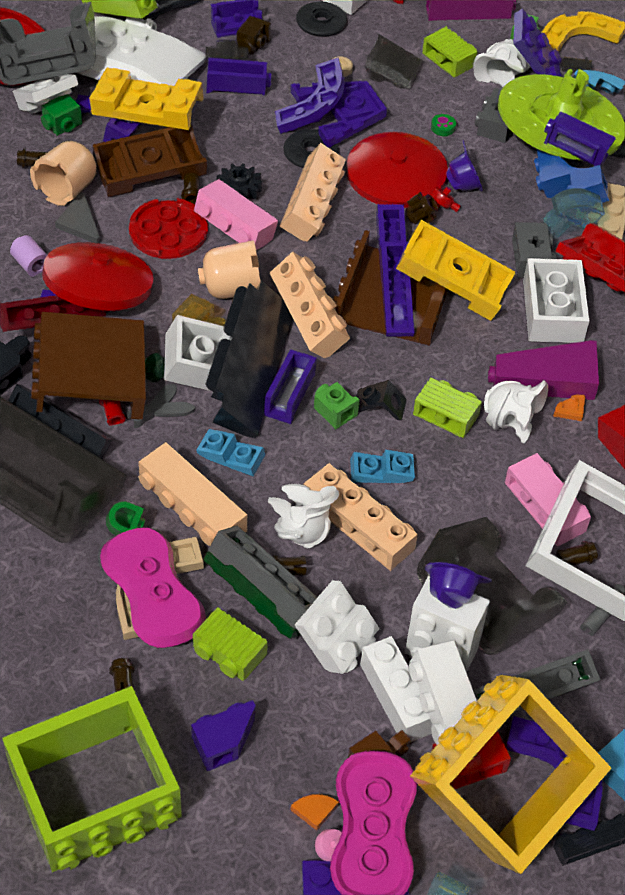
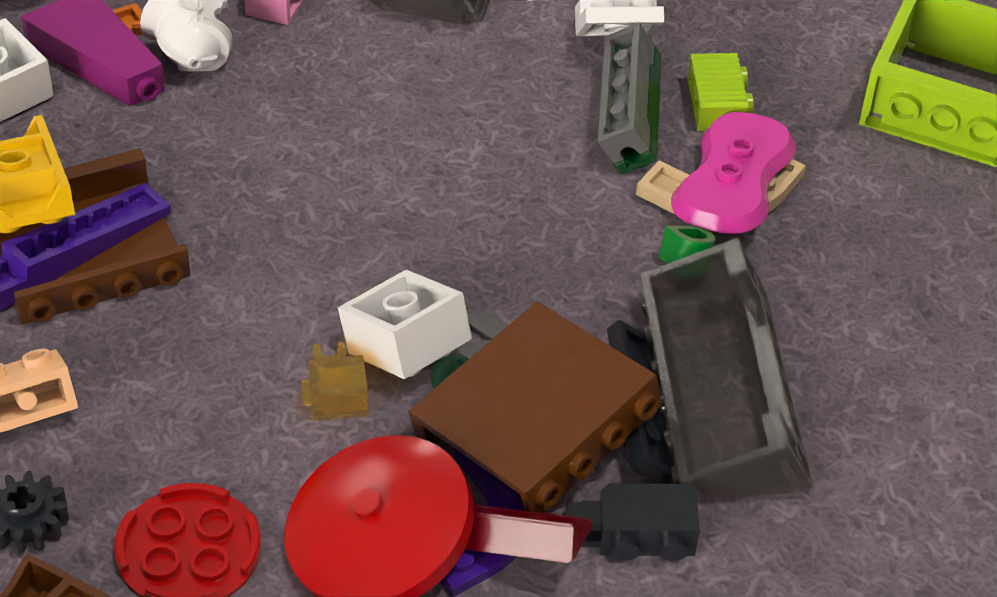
camera: 130 degrees left, 5 degrees down
(122, 673) = (838, 148): dark brown pin -> none
(189, 493) = (597, 214): light nougat brick -> none
(191, 187) = (91, 561): dark brown pin -> none
(223, 735) = (802, 41): dark purple slope -> none
(225, 450) = (493, 237): dark azure slope -> none
(230, 267) = (223, 382): light nougat cylinder -> none
(235, 214) = (107, 461): bright pink brick -> none
(249, 359) = (347, 284): black slope -> none
(289, 562) = (580, 108): dark brown pin -> none
(290, 386) = (347, 232): dark purple window -> none
(308, 520) = (513, 94): white helmet -> none
(310, 305) = (203, 284): light nougat brick -> none
(335, 404) = (333, 183): bright green brick -> none
(365, 519) = (463, 86): light nougat brick -> none
(381, 394) = (287, 163): black bracket -> none
(388, 468) = (371, 110): dark azure slope -> none
(447, 407) = (237, 97): lime brick -> none

